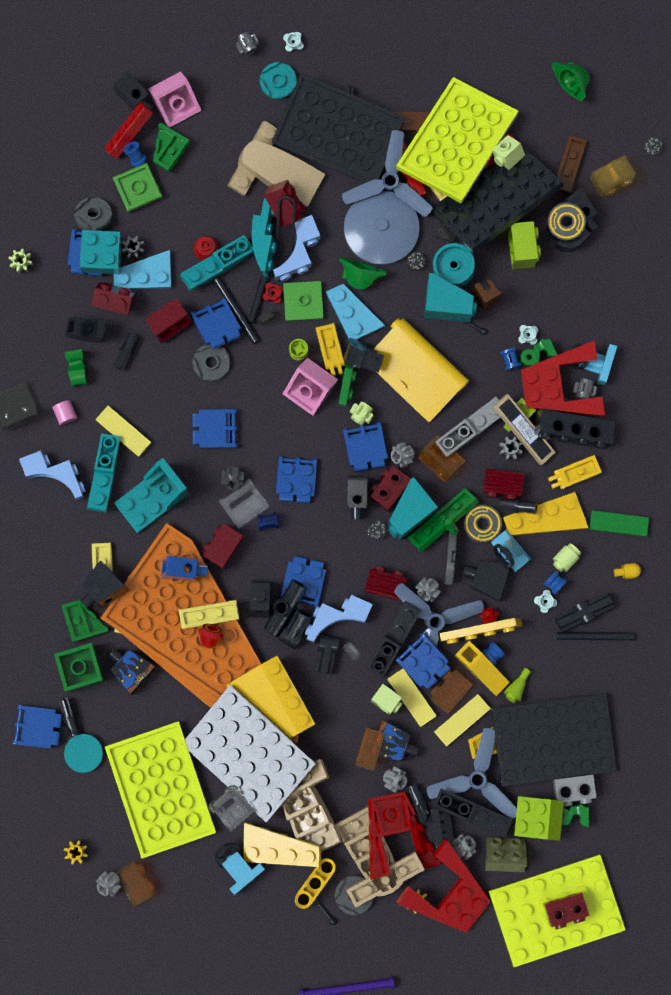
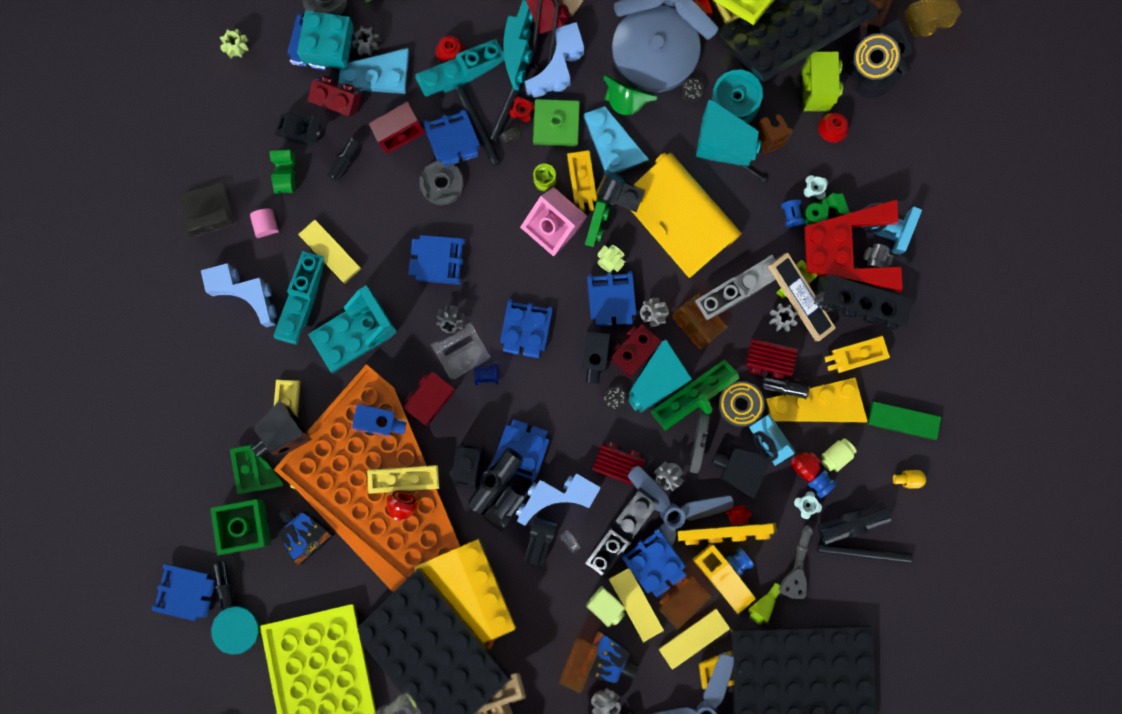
camera: 10 degrees right, 0 degrees up
(535, 285) = (833, 127): none -> red cone
(540, 569) = (806, 465): none -> red cone
(542, 658) = (797, 572): none -> dark grey piece

